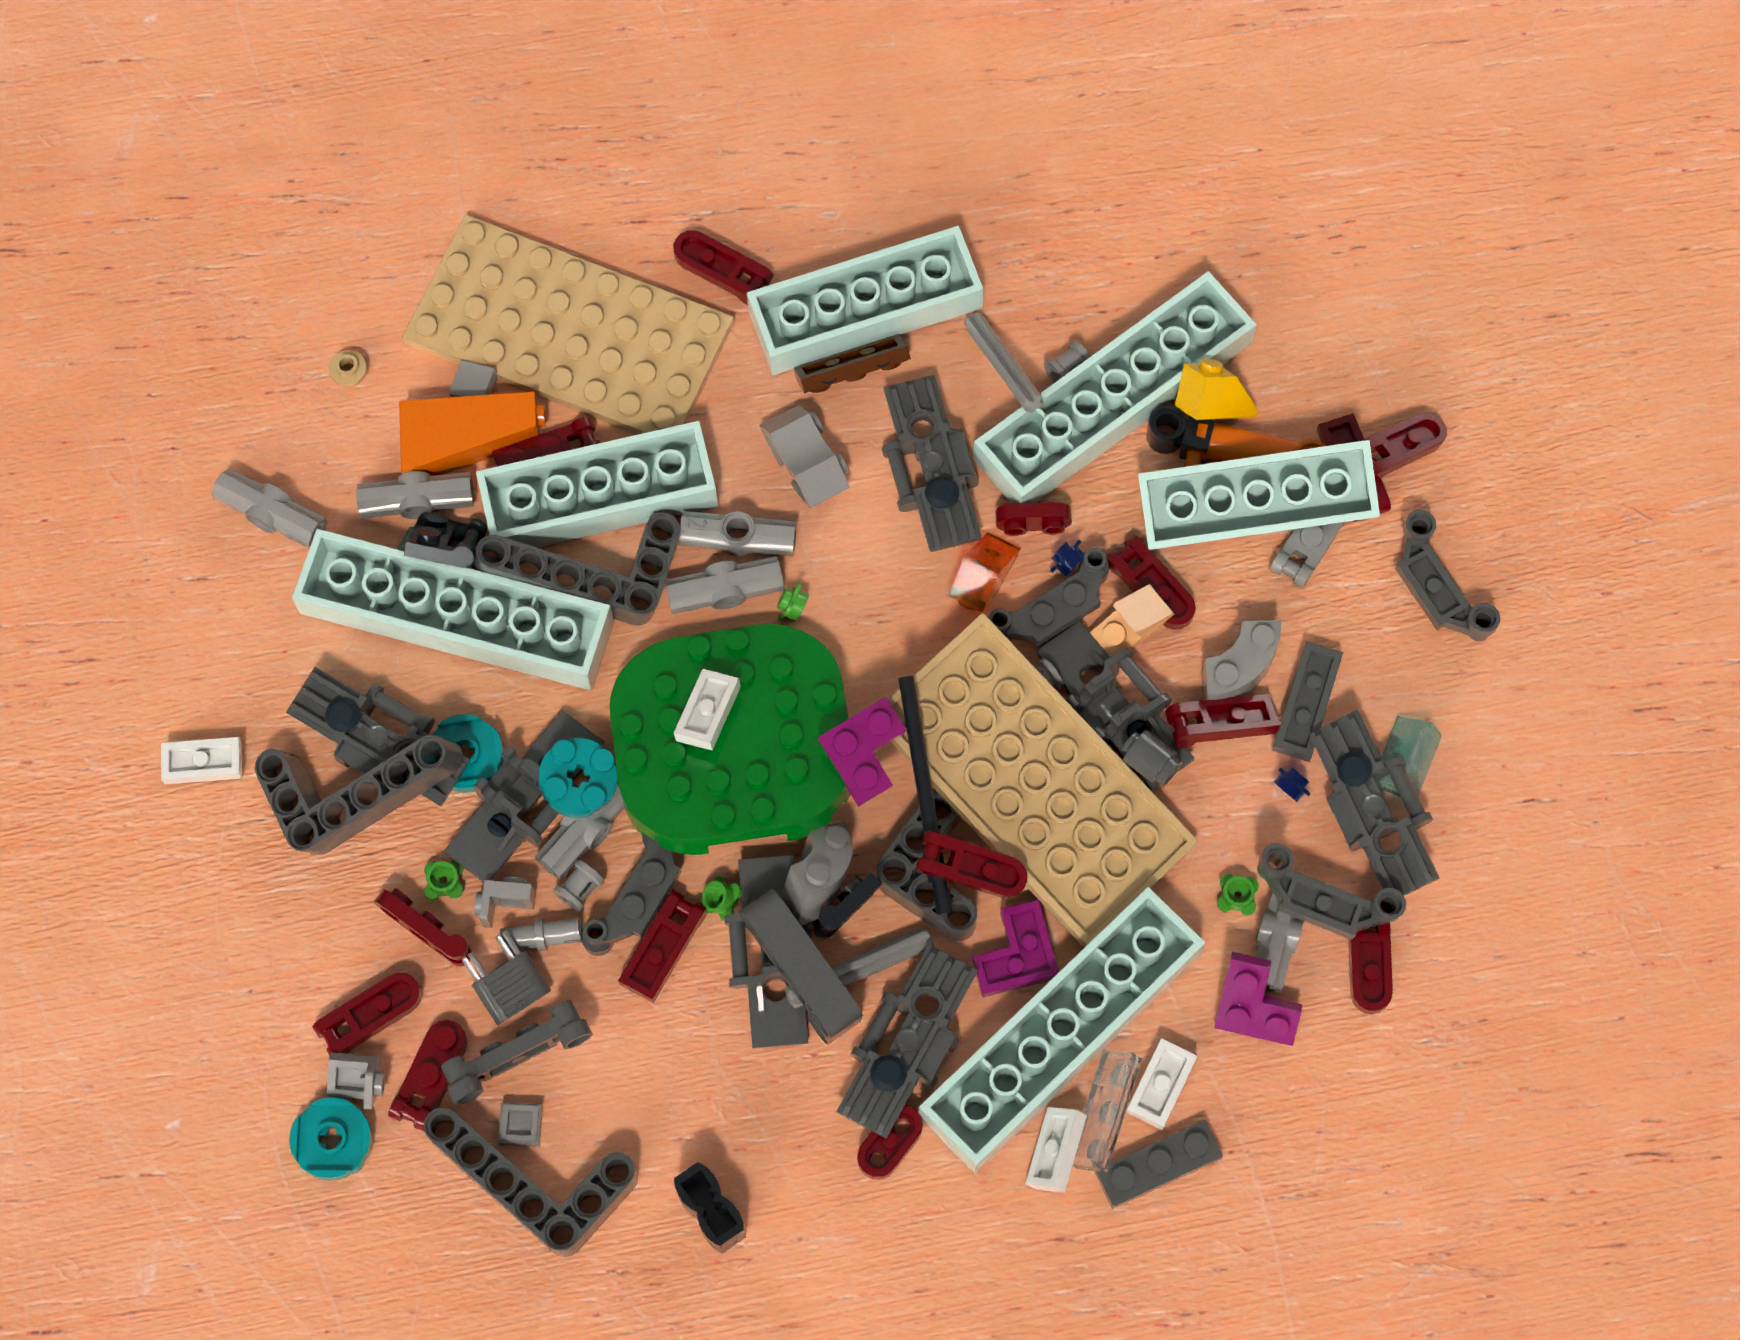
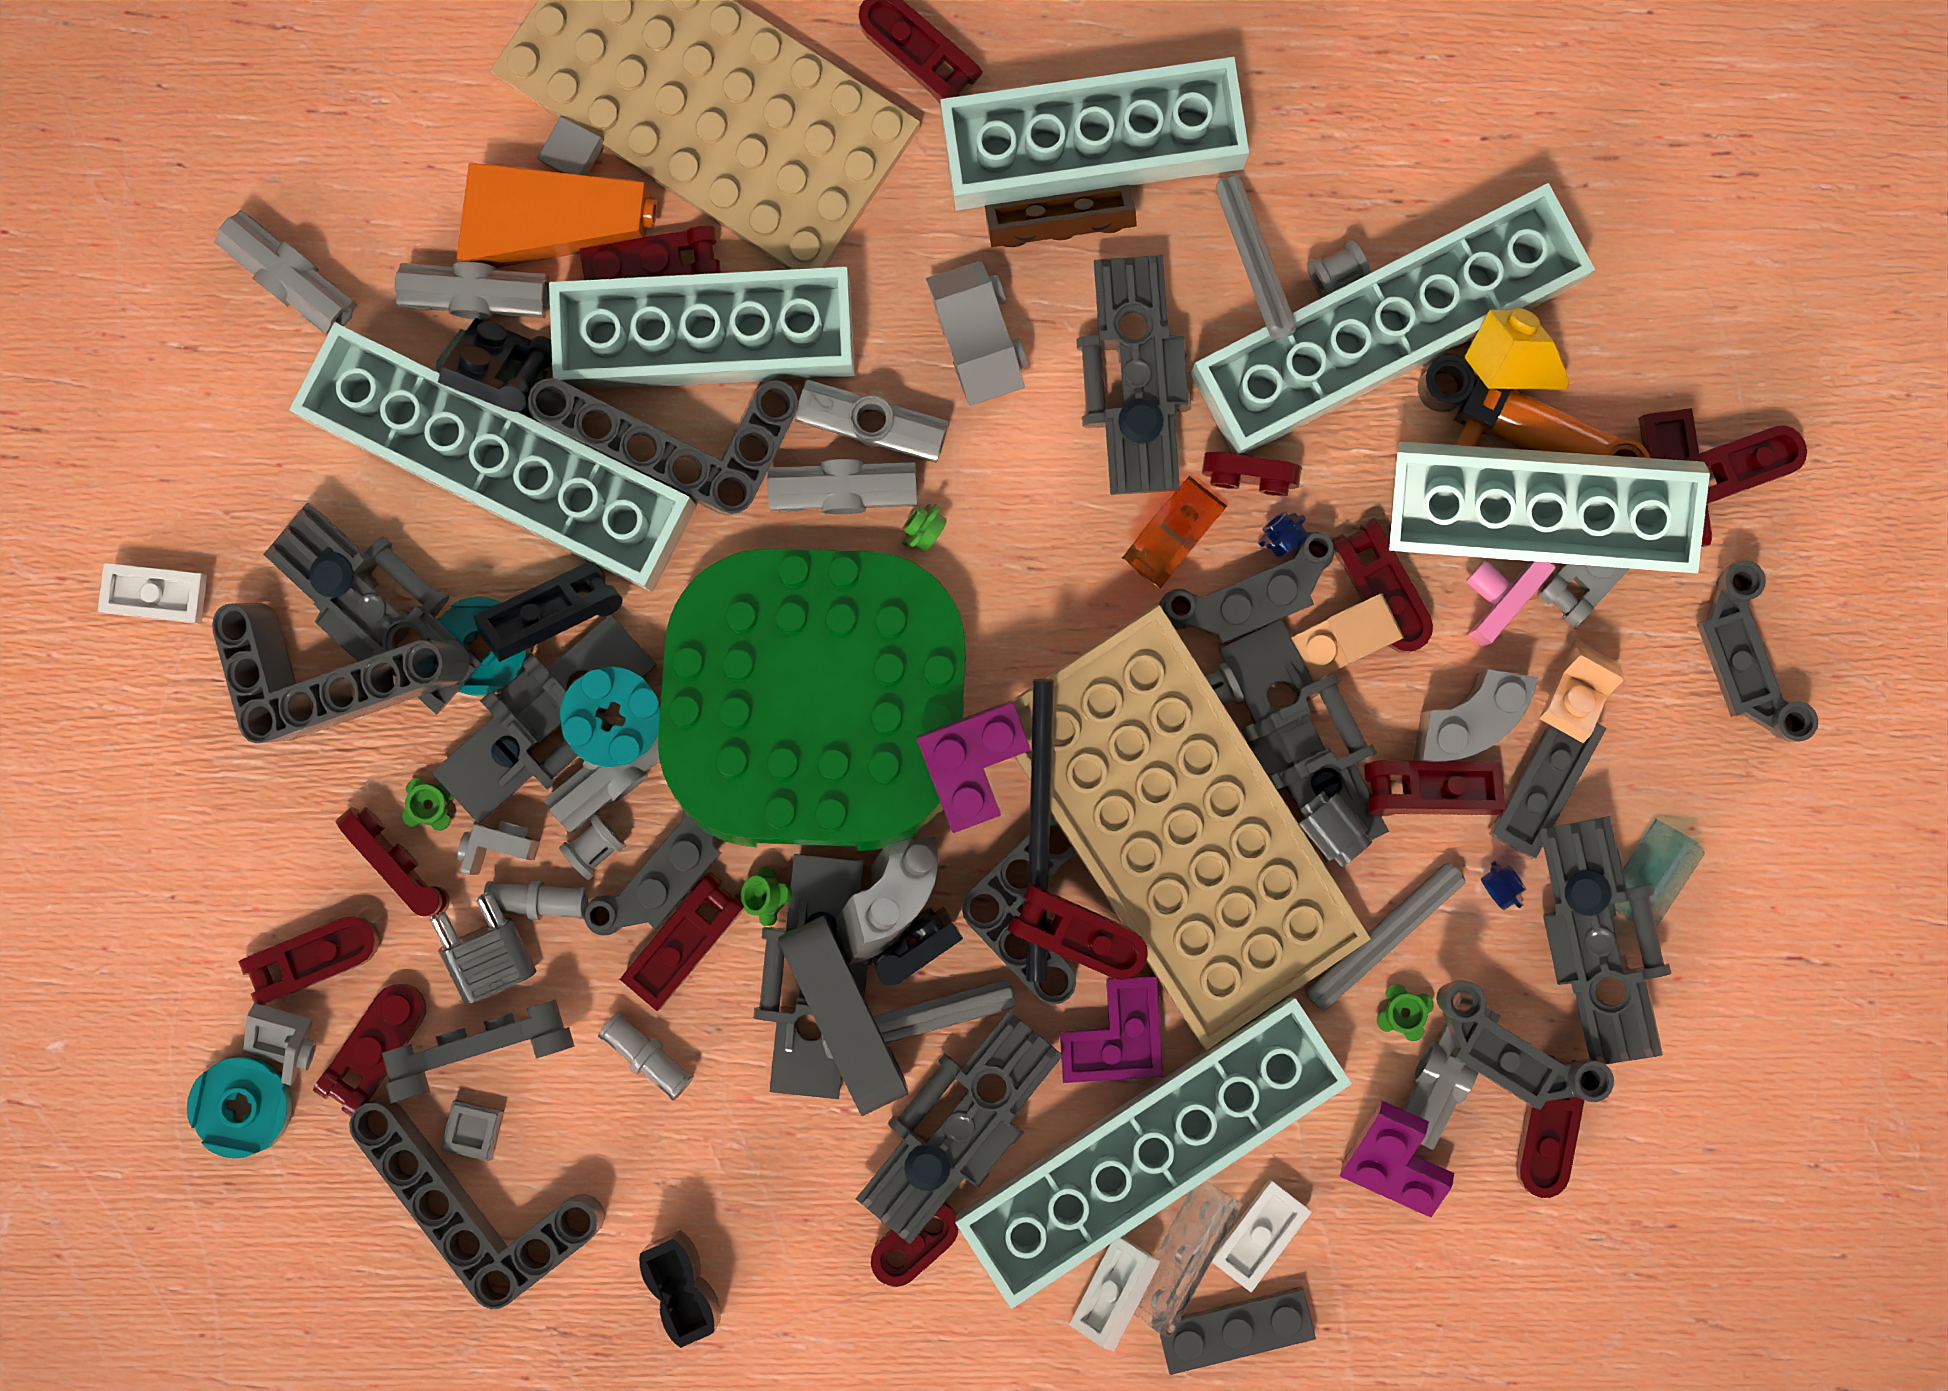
camera: 15 degrees right, 15 degrees up
(352, 377) = (424, 109): tan plate -> none
(514, 712) = (547, 610): none -> black plate
(649, 1038) = (645, 1056): none -> light grey pin
(707, 709) = (786, 665): white plate -> none
(1210, 840) = (1386, 936): none -> light grey axle
(1244, 572) = (1504, 596): none -> bright pink tile
(1317, 629) = (1581, 691): none -> light nougat slope

